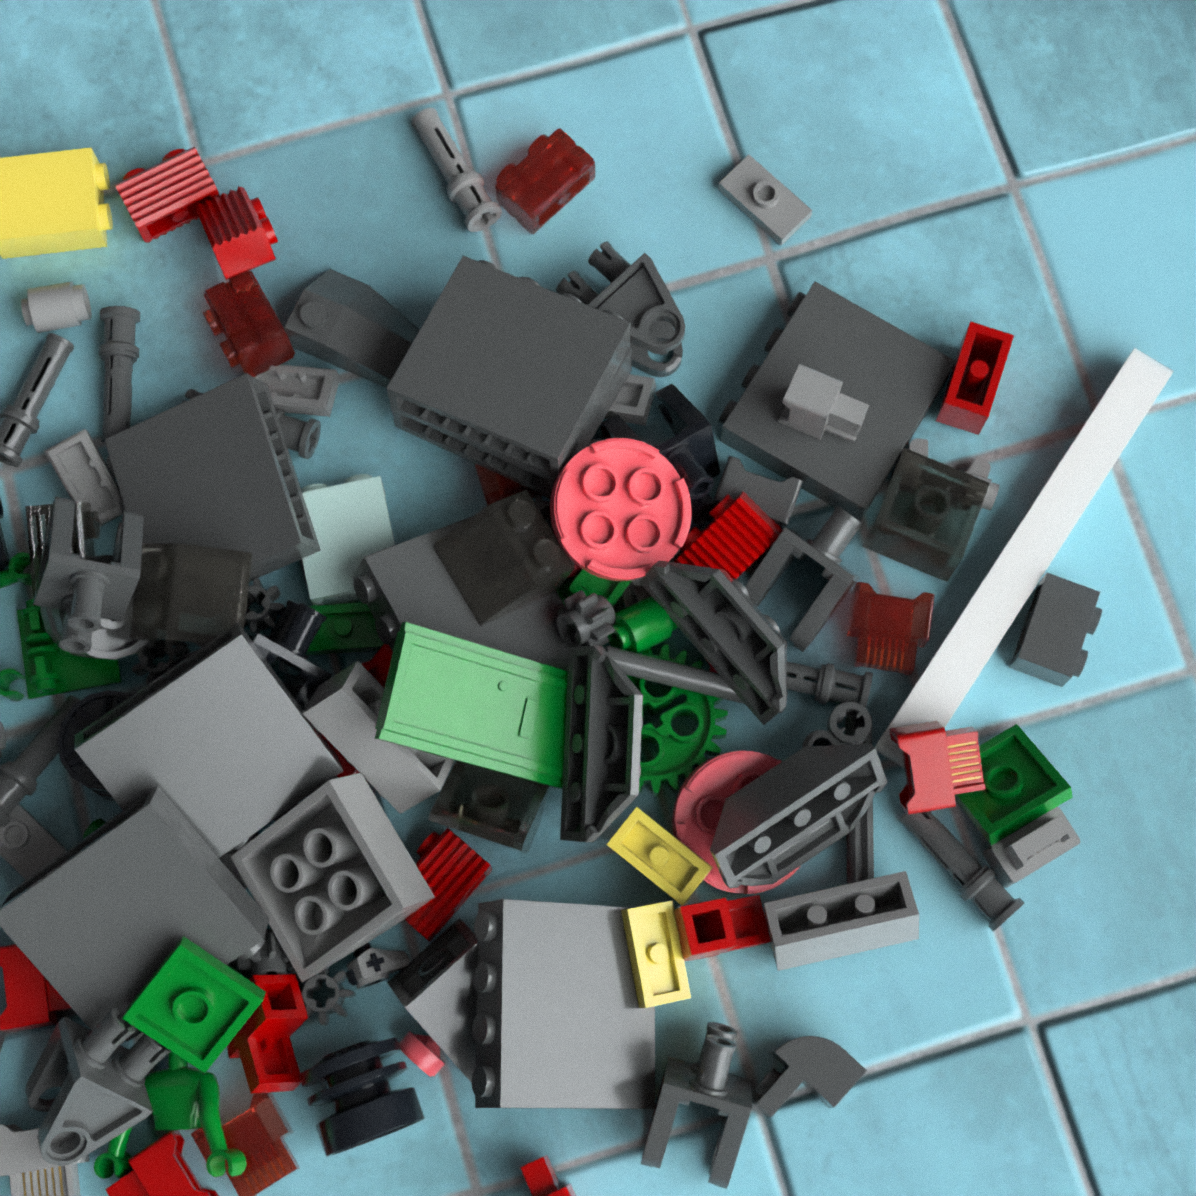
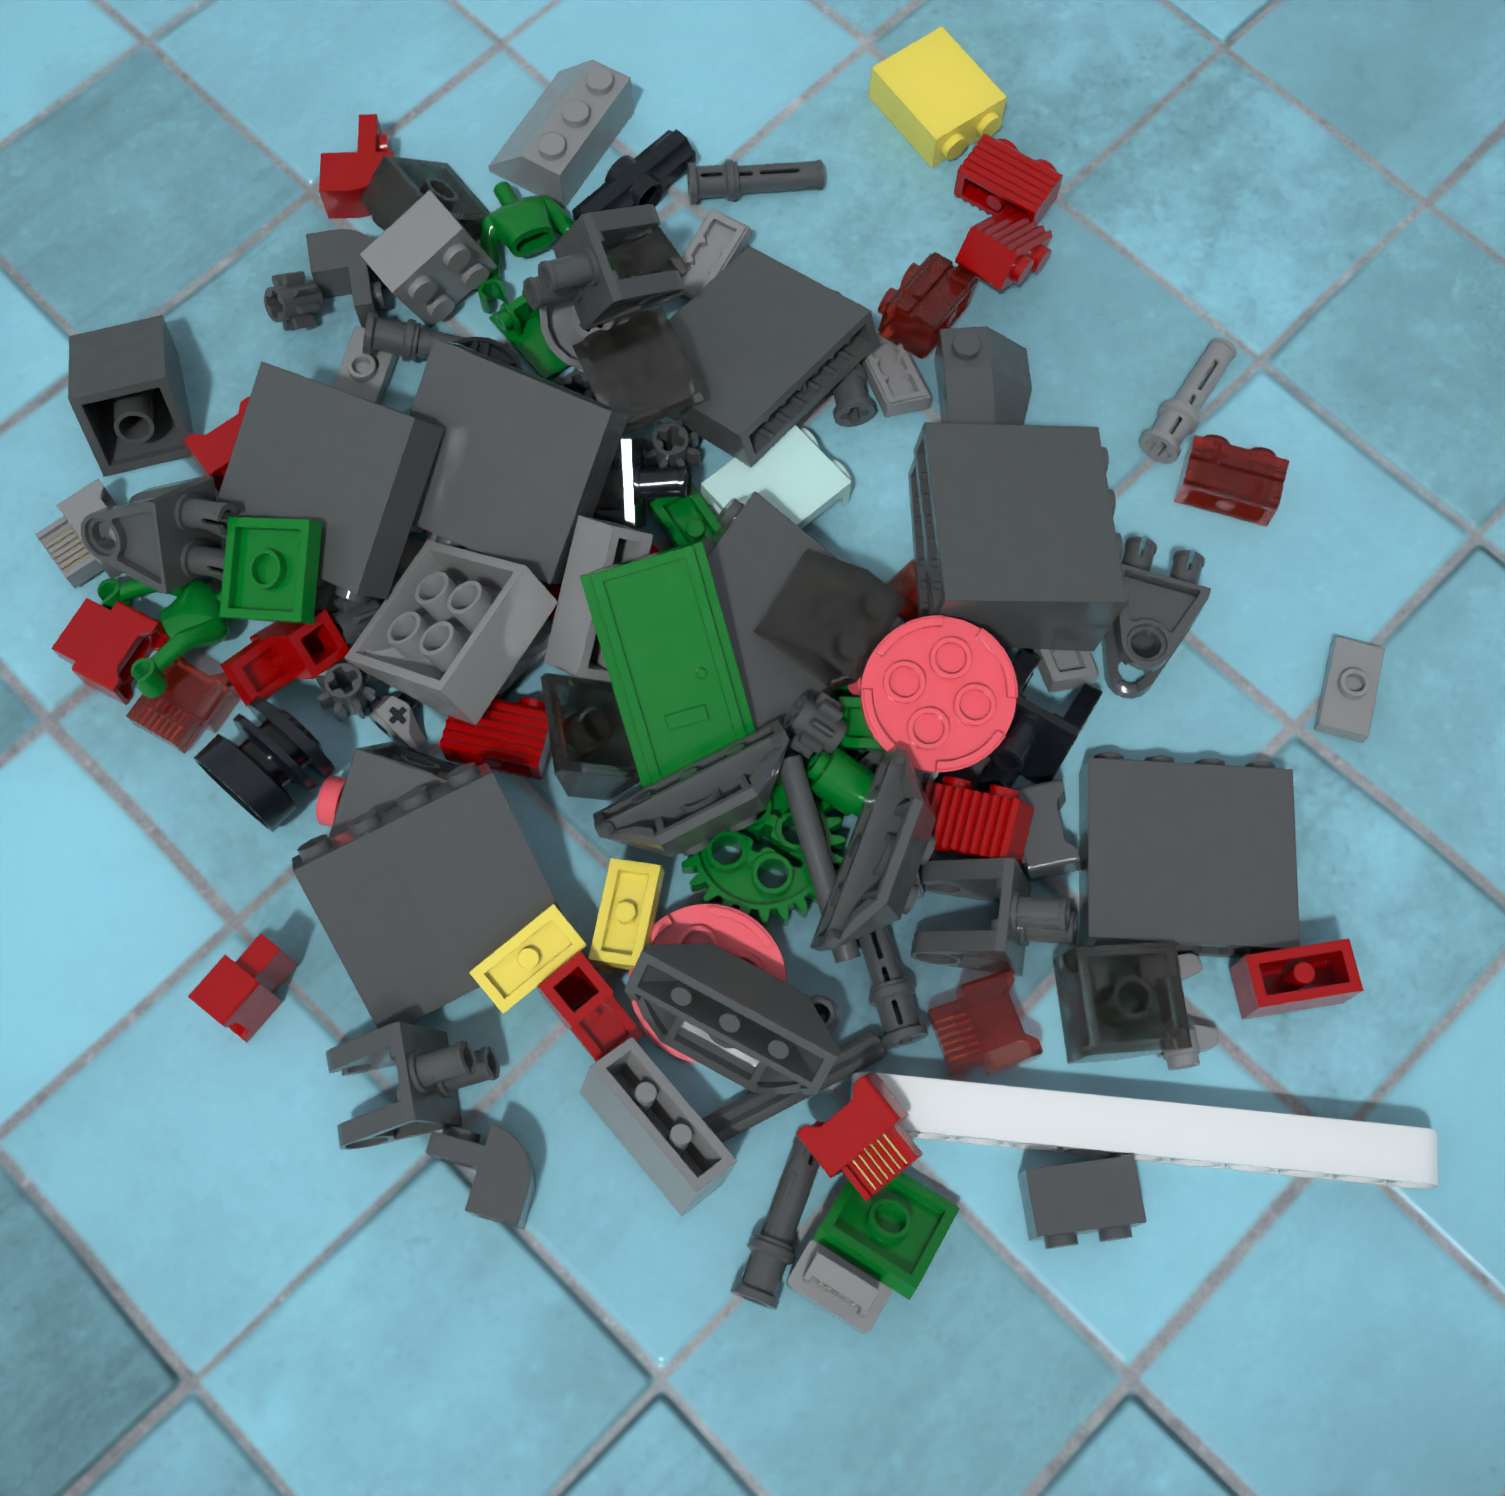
camera: 60 degrees right, 5 degrees down
(56, 306) = (849, 153): light grey brick -> none
(118, 355) = (834, 224): dark grey pin -> none
(817, 406) = (1159, 828): light grey piece -> none
(860, 714) = (854, 1049): dark grey bush -> none

